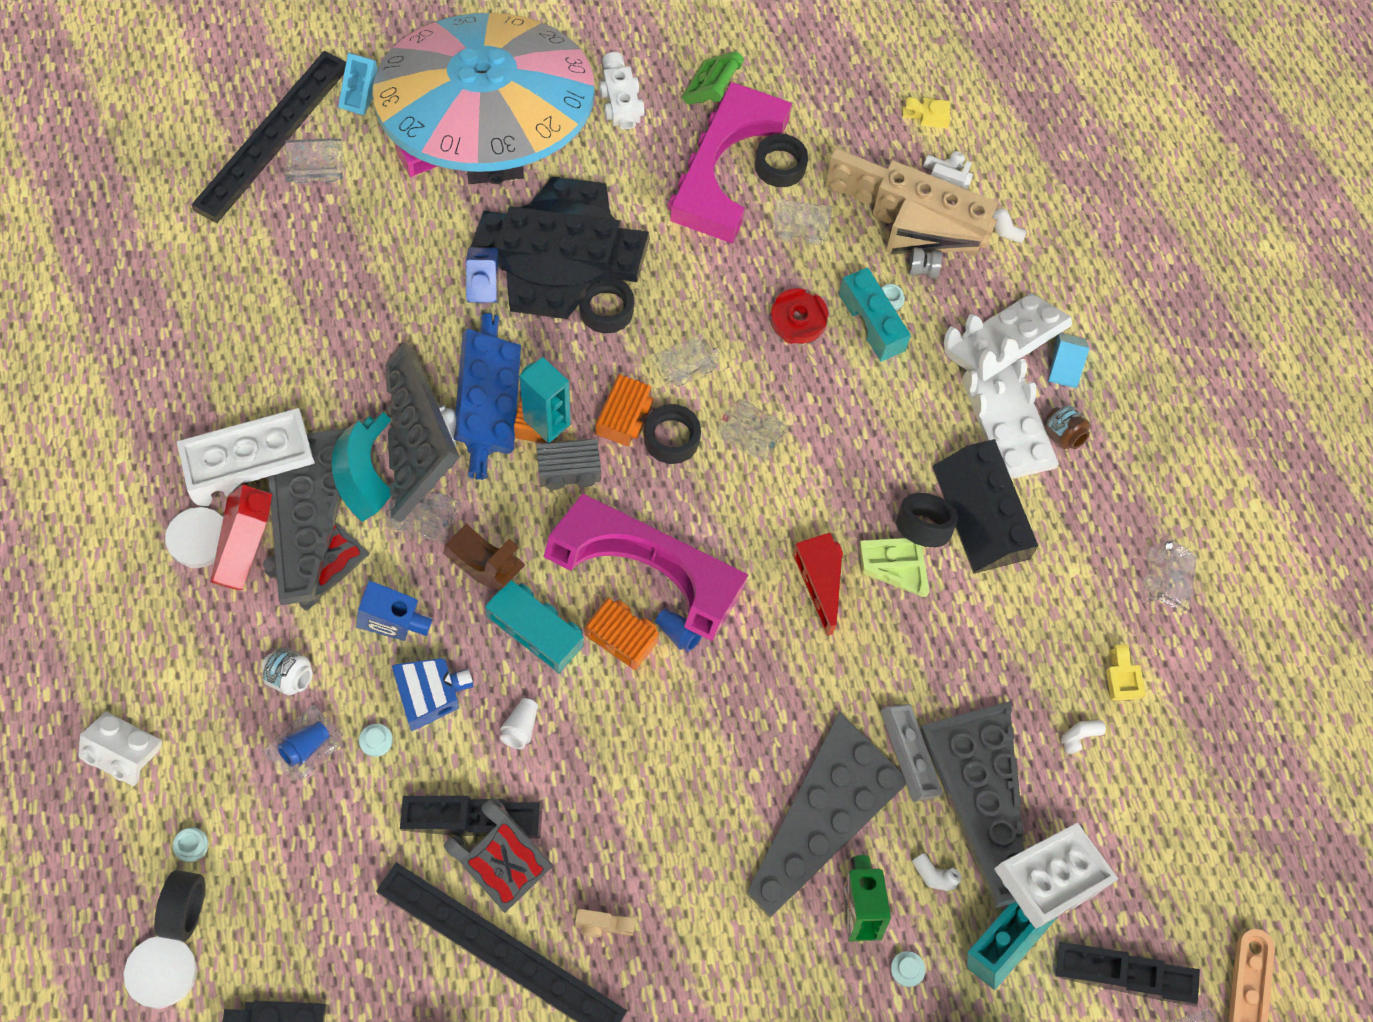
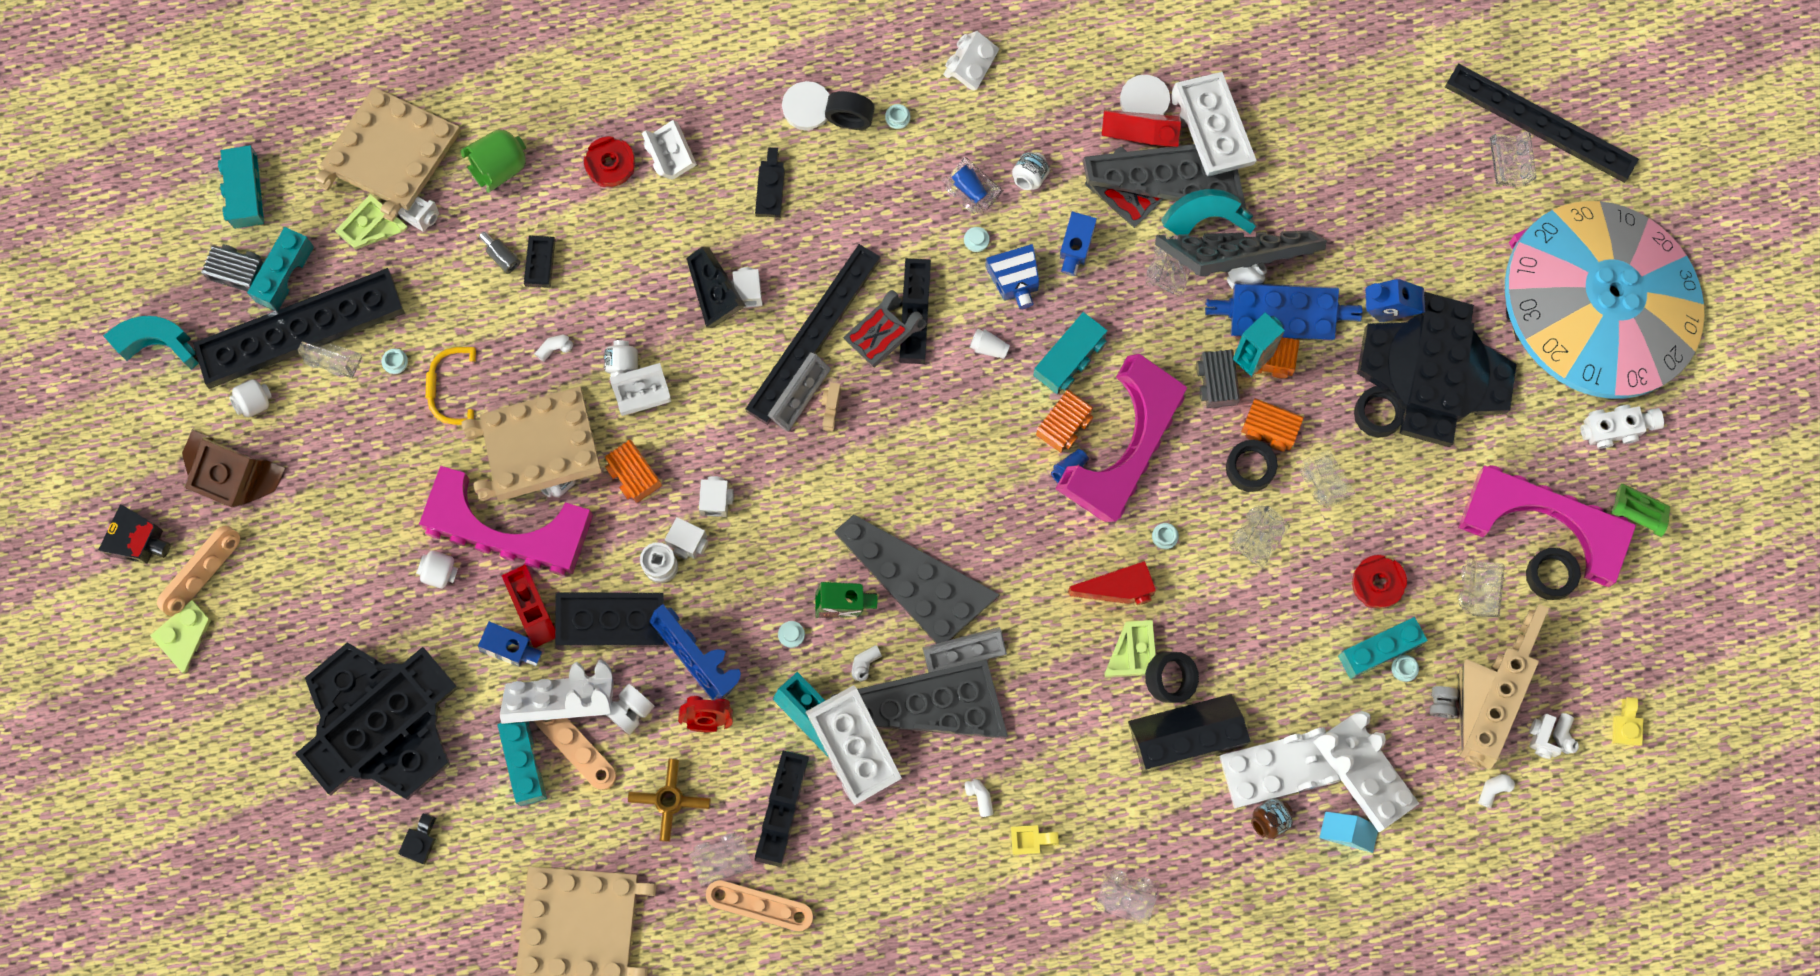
camera: 100 degrees right, 10 degrees up
(357, 84) = (1601, 188): medium azure slope -> none
(482, 560) = (1127, 310): reddish brown arch -> none
(583, 967) = (799, 391): none -> light grey tile
(757, 527) = (1165, 536): none -> light aqua plate

